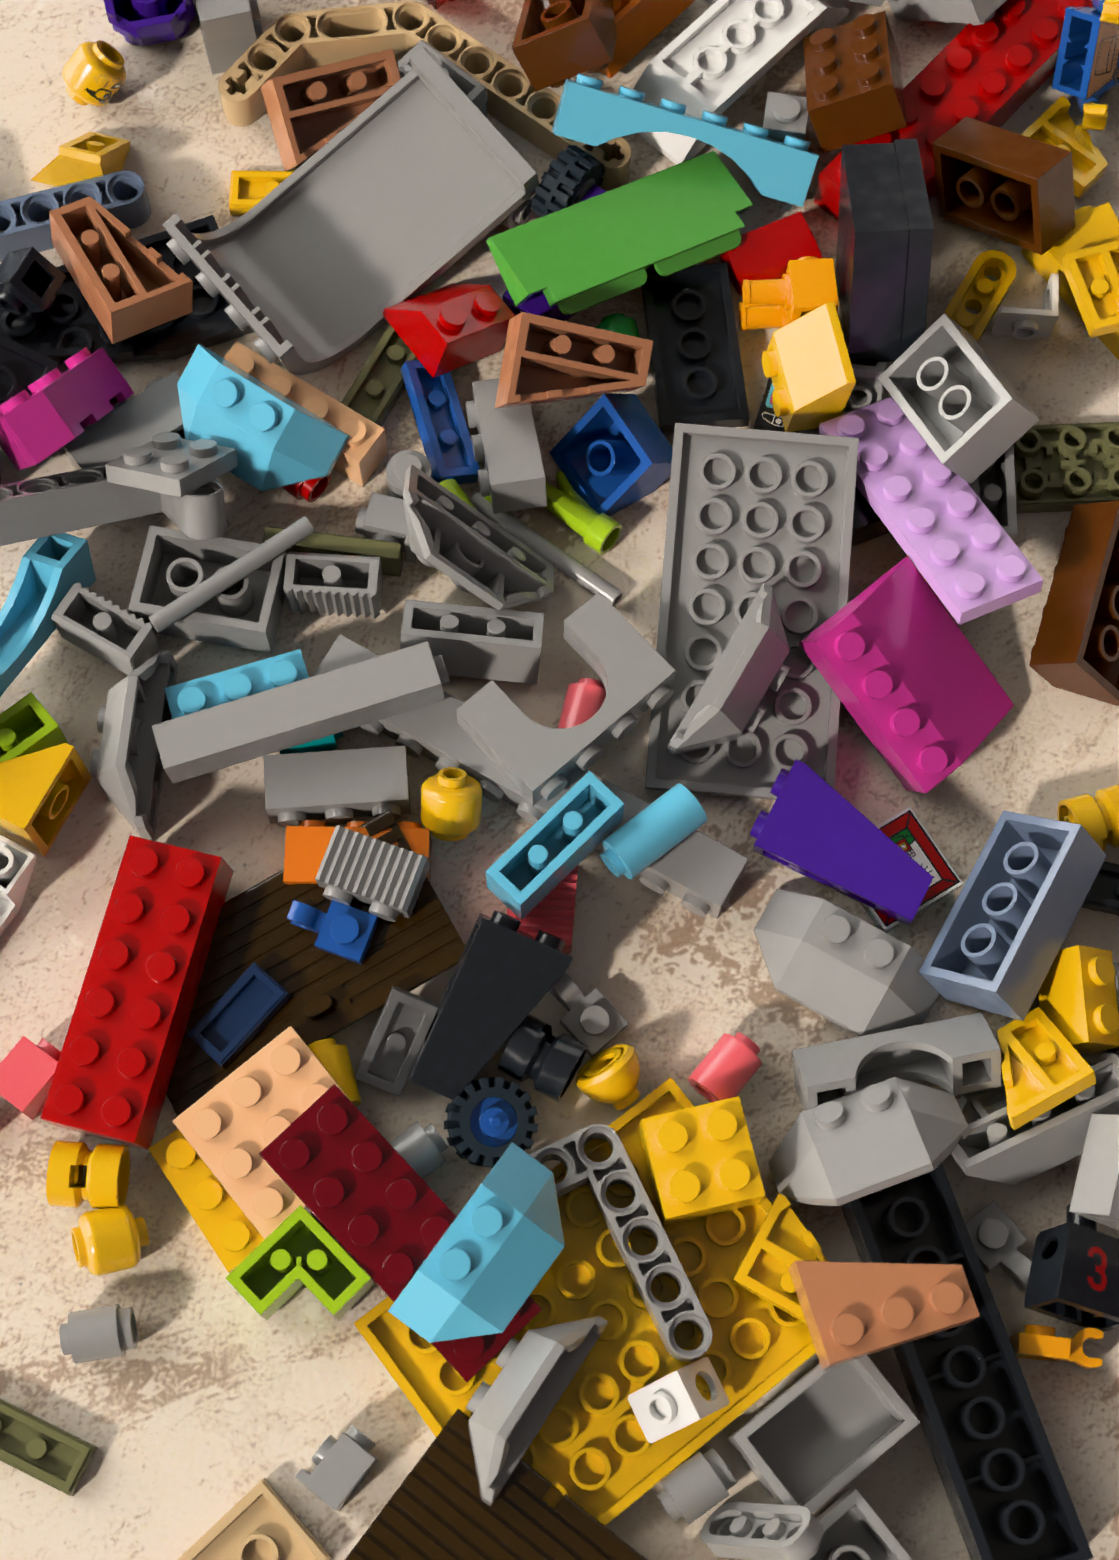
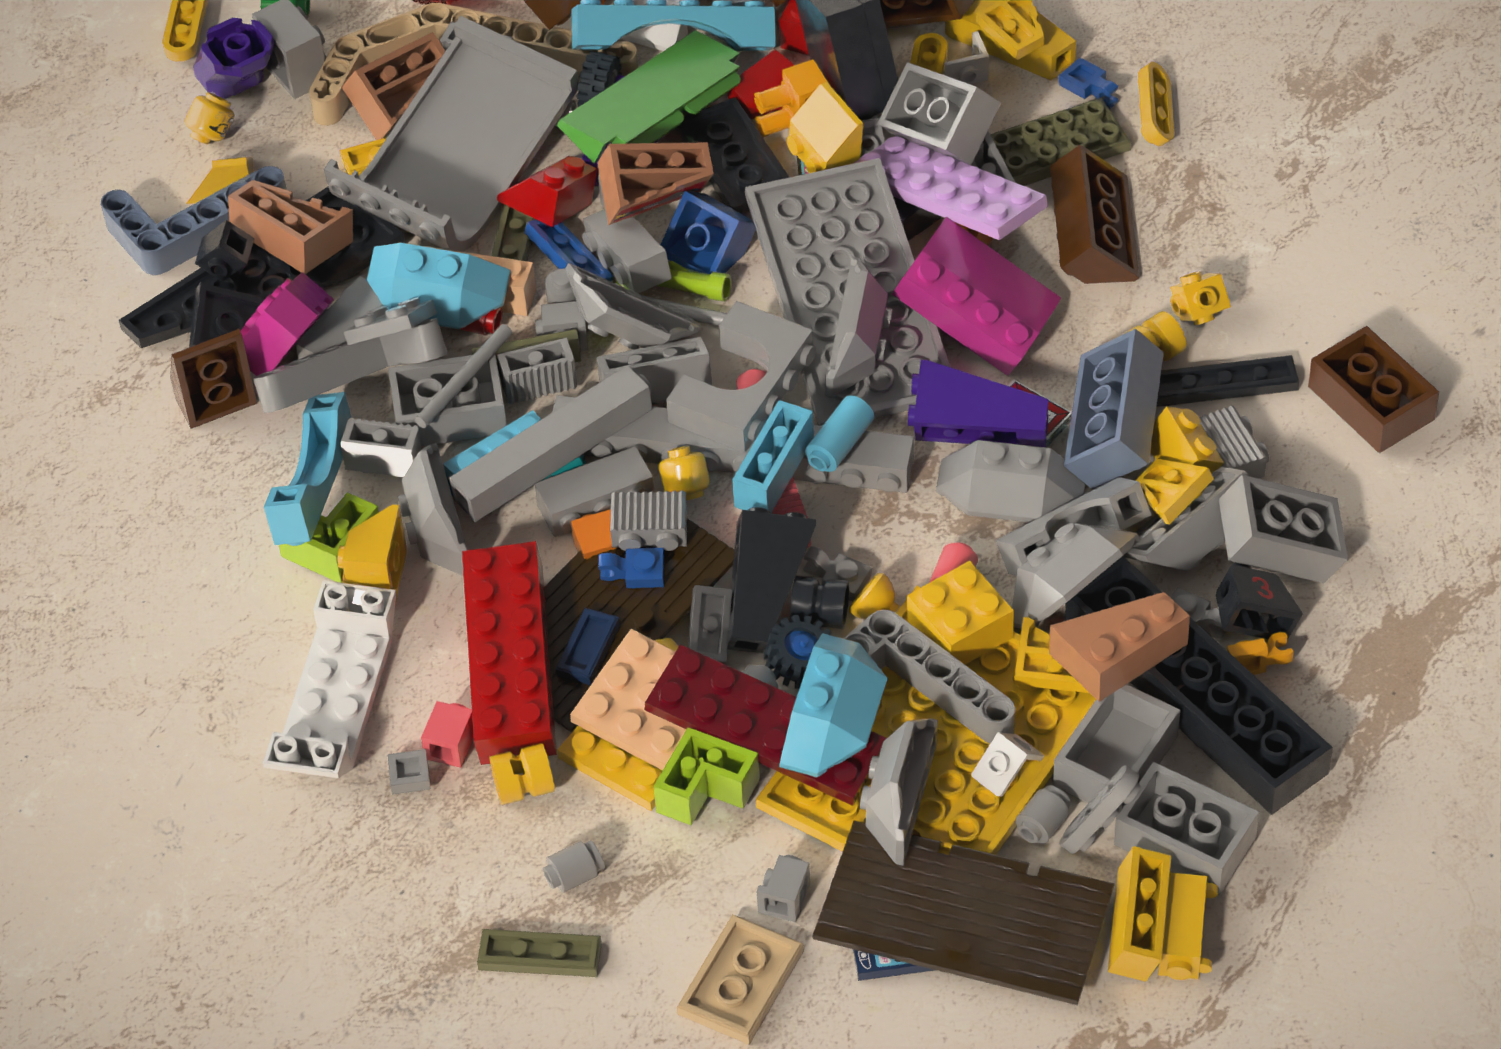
camera: 15 degrees left, 20 degrees down
(109, 1240) = (554, 808): yellow head -> none

